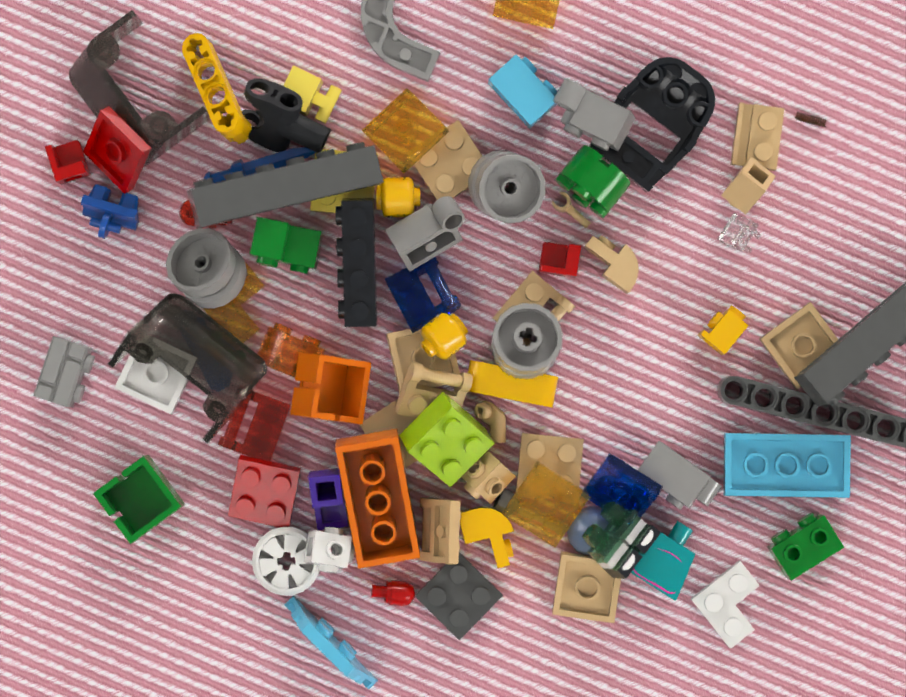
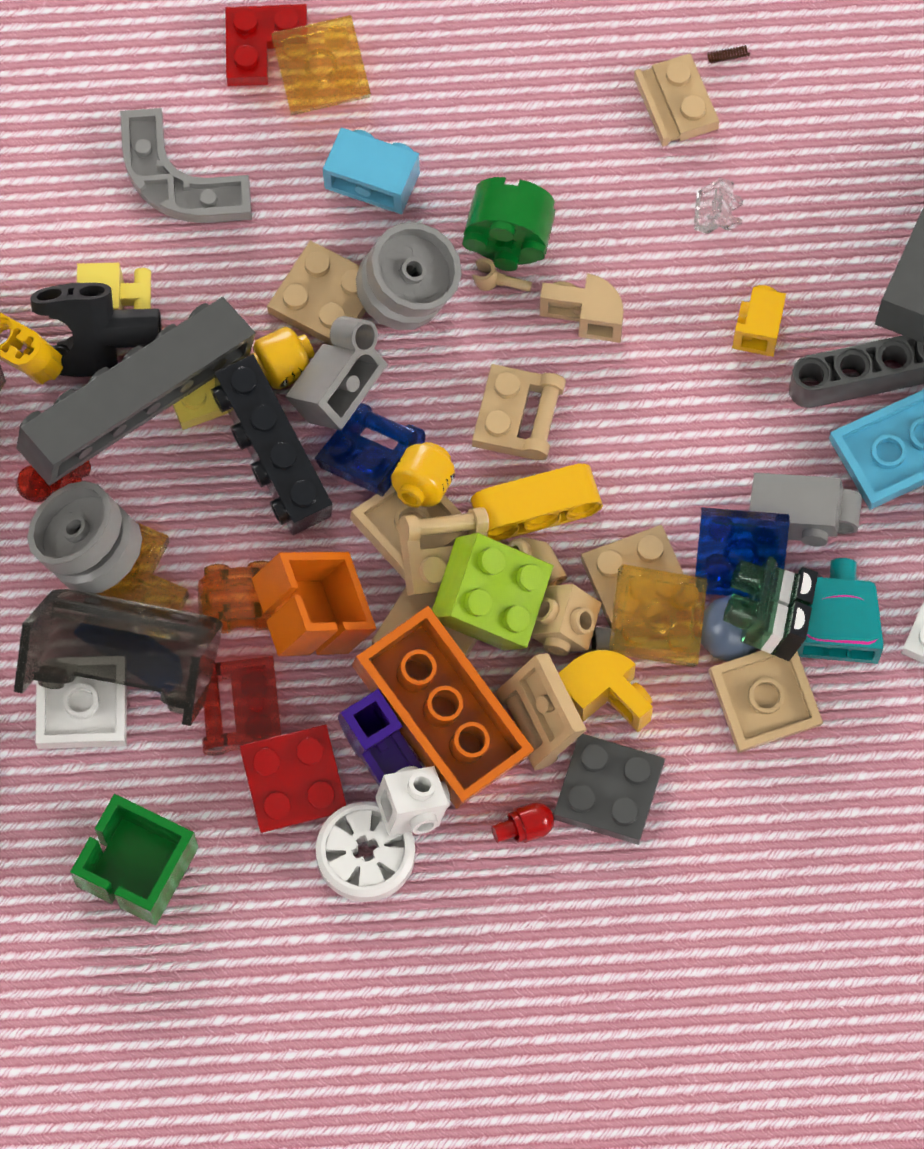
camera: 25 degrees left, 20 degrees down
(286, 244) = (170, 471): green brick -> none
(322, 636) = (478, 919): medium azure wing -> none
(405, 130) = (255, 277): clear yellow plate -> none
(527, 322) = (528, 429): light grey wheel -> none
(560, 259) = (520, 338): red panel -> none
(593, 116) = (469, 147): light grey hinge -> none
(674, 98) = (551, 100): black slope -> none
(748, 185) = (696, 148): tan brick -> none
(798, 341) = (854, 292): tan plate -> none

